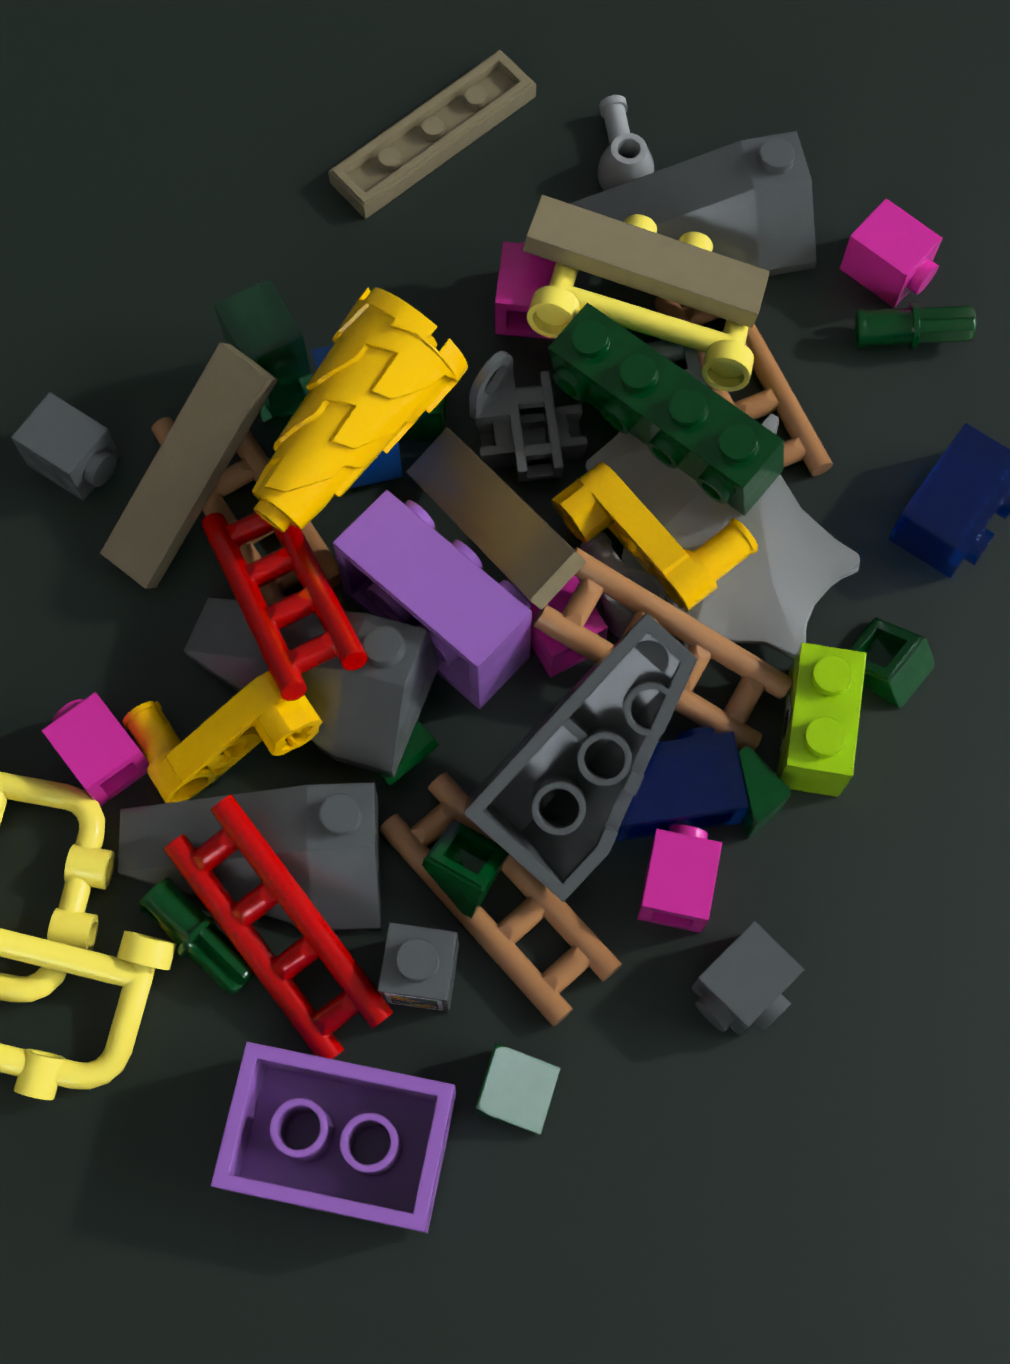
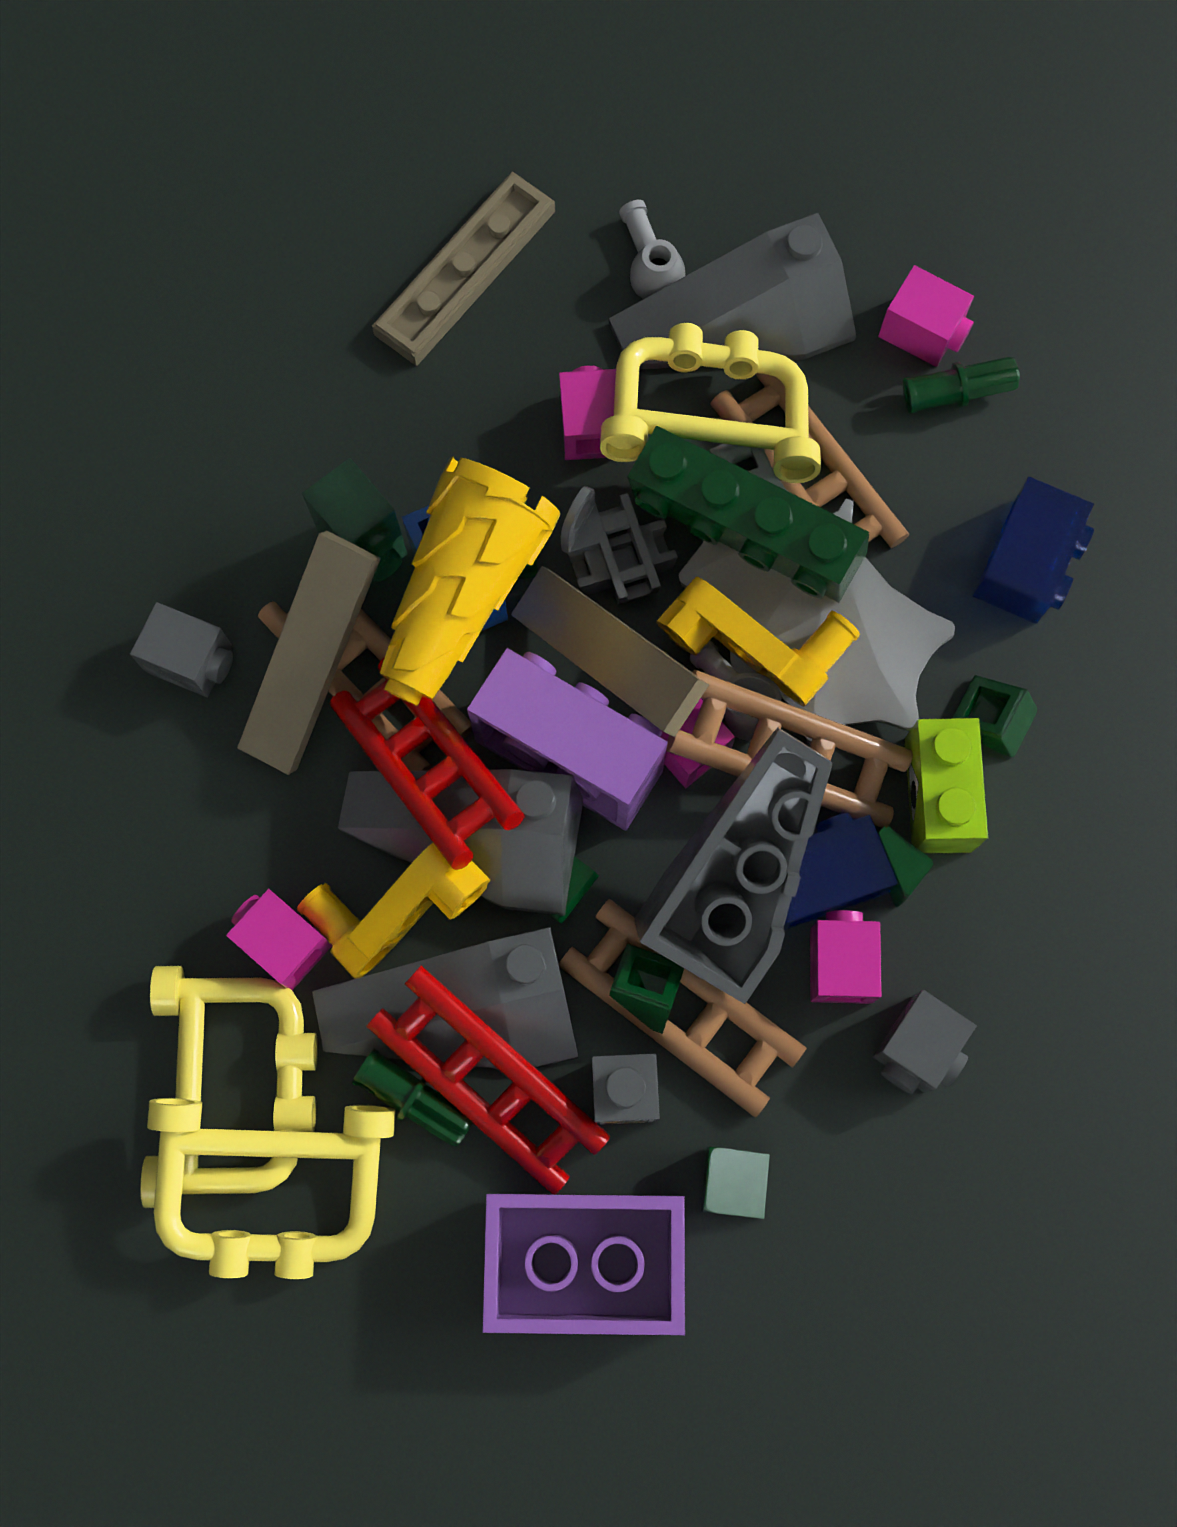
camera: 10 degrees left, 5 degrees up
(646, 261) = (702, 371): dark tan tile -> none

